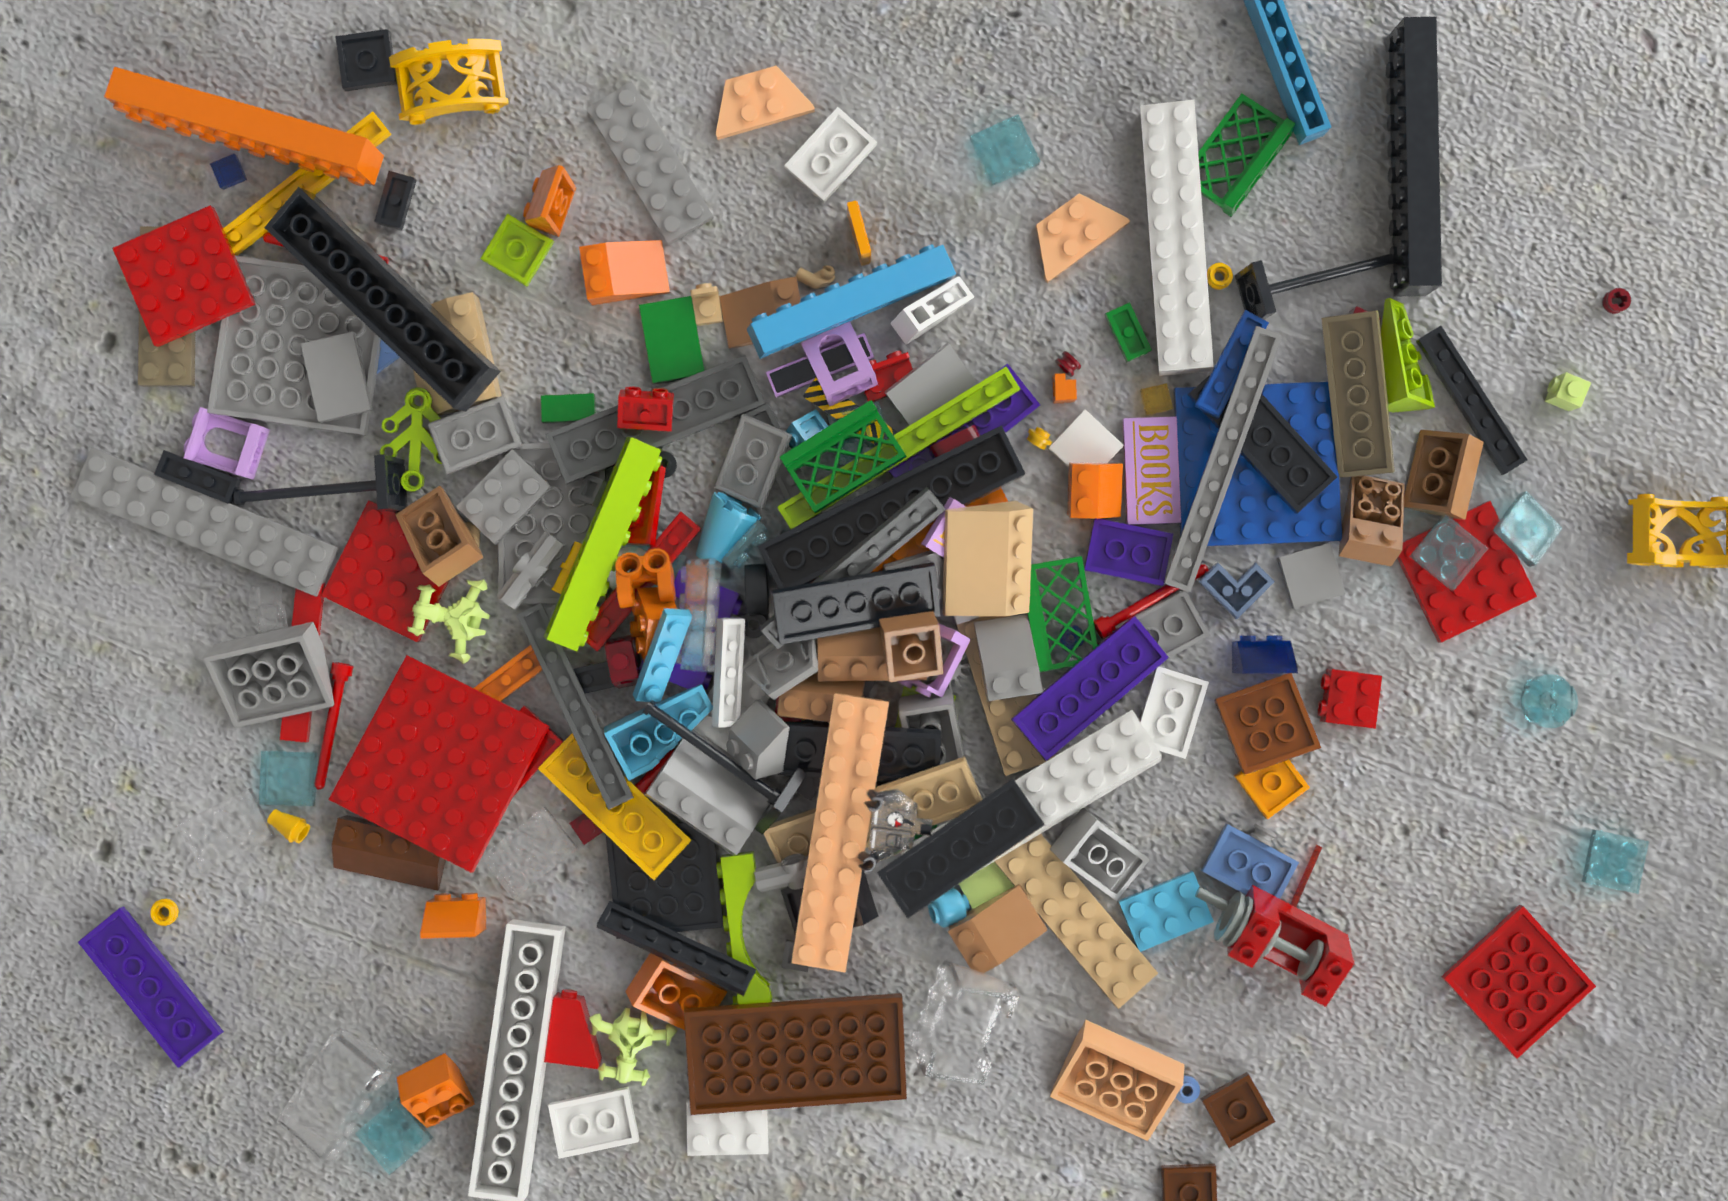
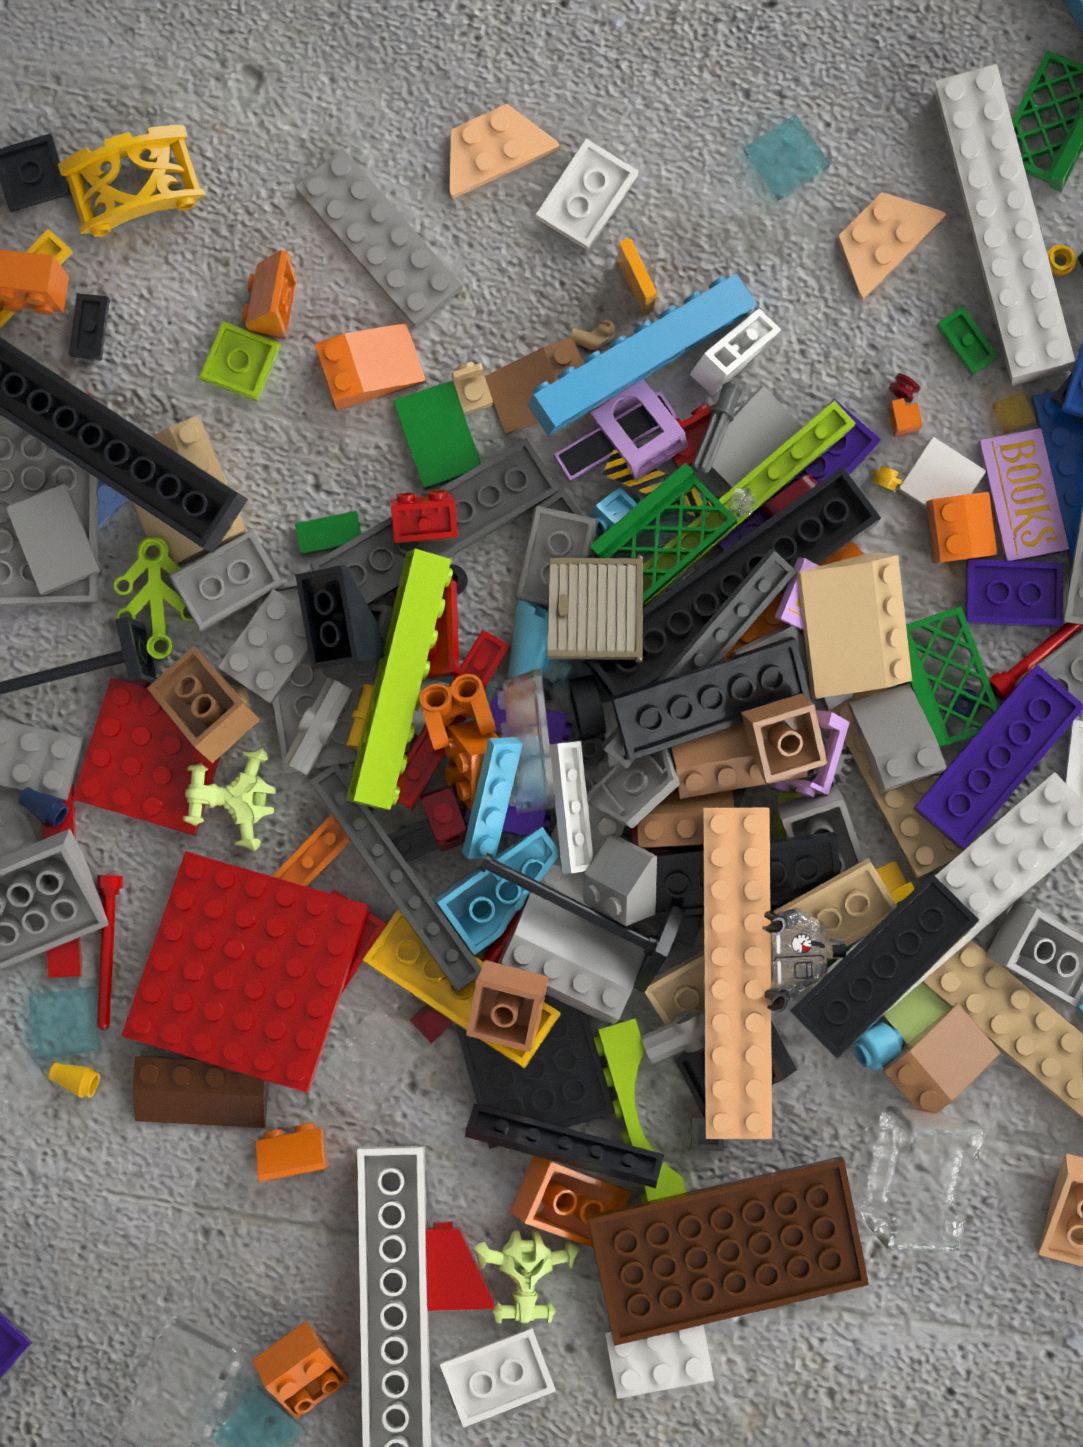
camera: 10 degrees left, 5 degrees down
(296, 600) = (46, 808): none -> dark blue cone
(558, 486) = (337, 619): none -> black slope
(645, 829) = (507, 1005): none -> nougat brick
(774, 511) = (596, 608): none -> piece
(908, 365) = (721, 416): none -> dark grey axle
(912, 441) = (742, 502): none -> clear plate
(984, 775) = (895, 881): none -> yellow panel

